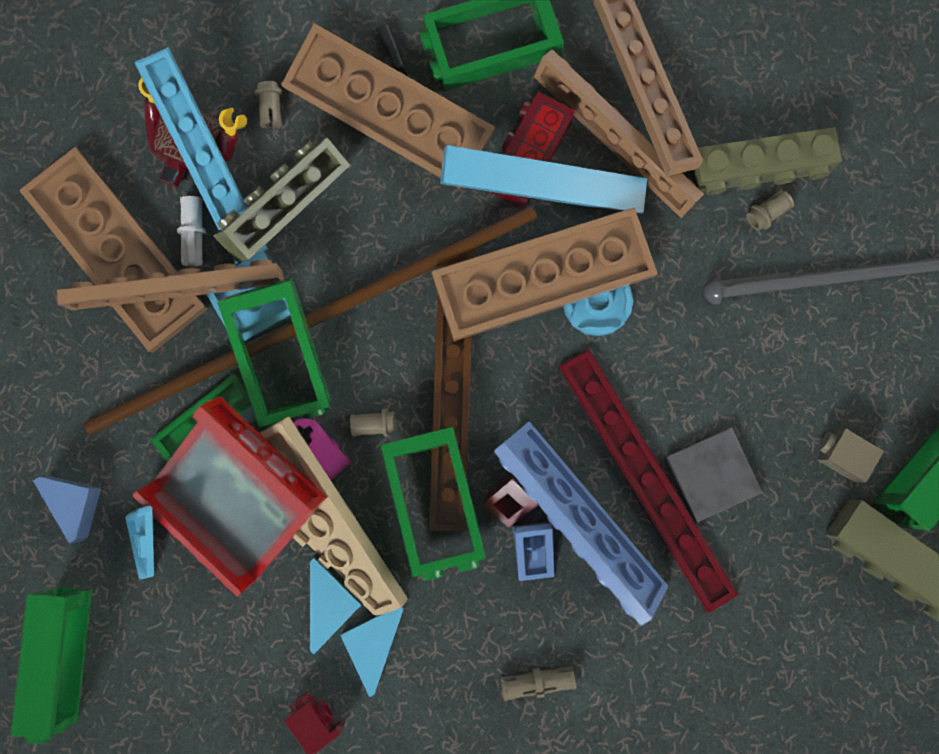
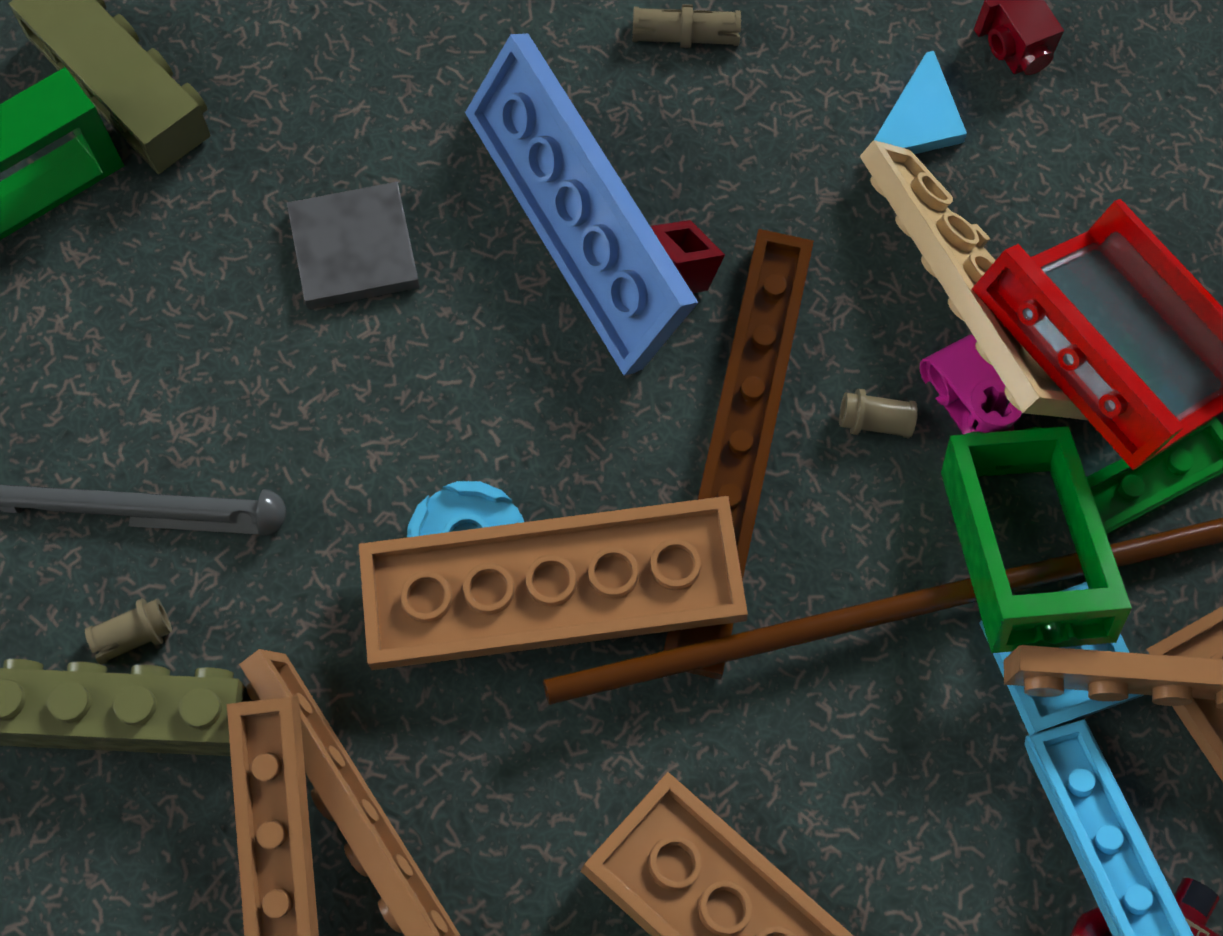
camera: 170 degrees left, 15 degrees down
(191, 231) = (1161, 792): white axle -> none
(280, 201) = (999, 794): olive brick -> none
(329, 605) = (979, 179): medium azure tile -> none
(434, 568) = (804, 349): green window -> none
(534, 550) = (659, 188): medium blue slope -> none
(537, 136) = (526, 818): dark red brick -> none
(542, 180) = (522, 738): medium azure tile -> none
(648, 481) = (462, 268): dark red tile -> none
(849, 454) = (136, 224): dark tan brick -> none

